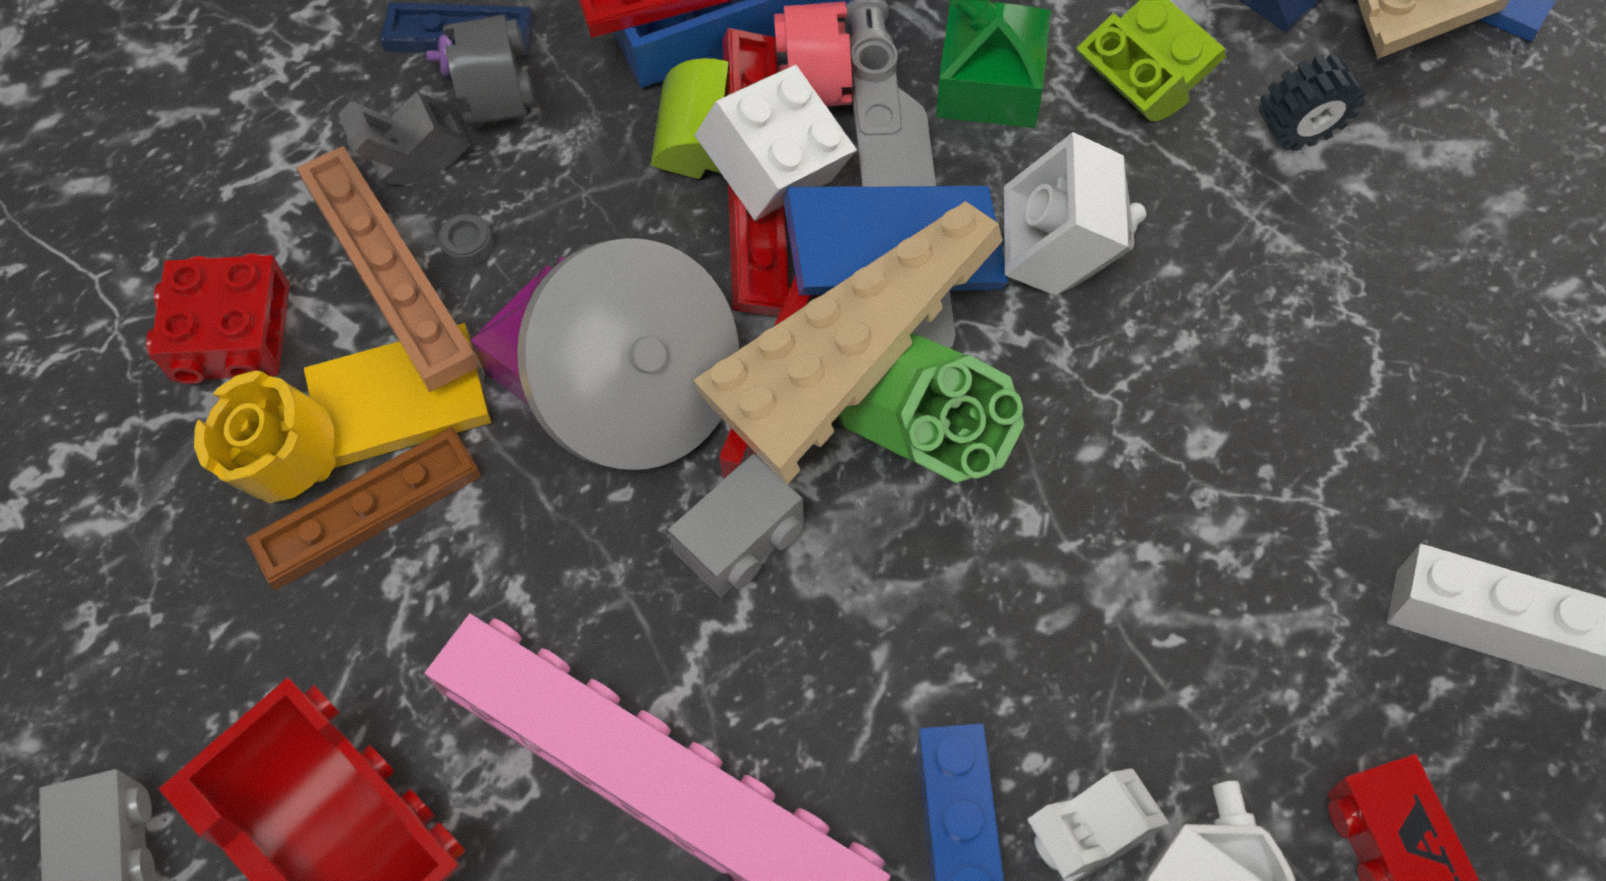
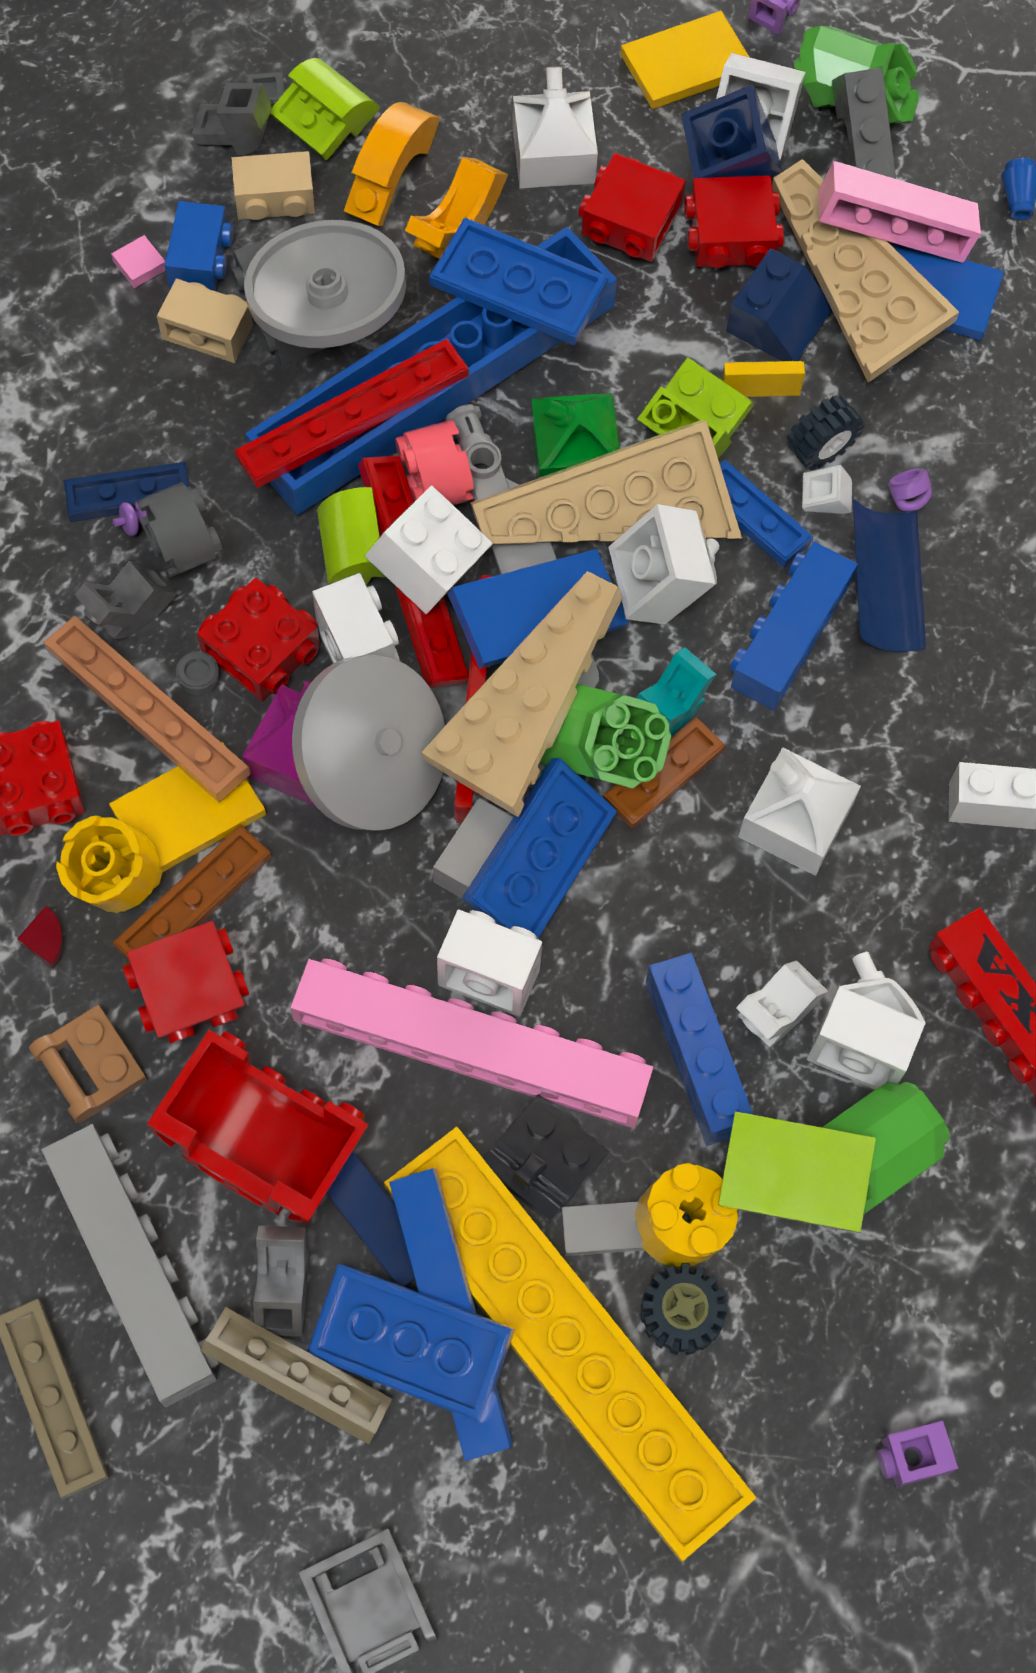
camera: 20 degrees left, 5 degrees up
(169, 513) = (44, 937): none -> dark red tile
(180, 682) = (102, 1057): none -> medium nougat plate
(306, 608) = (186, 982): none -> red brick
(547, 208) = (260, 638): none -> red brick
(659, 201) = (351, 620): none -> white brick
(704, 671) = (489, 961): none -> white brick
(813, 545) = (541, 850): none -> blue tile
(1013, 119) = (614, 492): none -> tan wing
(1033, 467) = (687, 756): none -> dark orange tile
(1052, 375) = (680, 689): none -> teal brick
(1179, 563) = (798, 811): none -> white piece
(1200, 186) = (763, 519): none -> blue tile
(1220, 325) = (792, 626): none -> blue brick
(1250, 32) = (765, 378): none -> yellow tile
(1300, 176) = (827, 490): none -> white slope
(1361, 297) = (889, 579): none -> dark blue sticker
(1407, 186) = (908, 485): none -> medium lavender tile

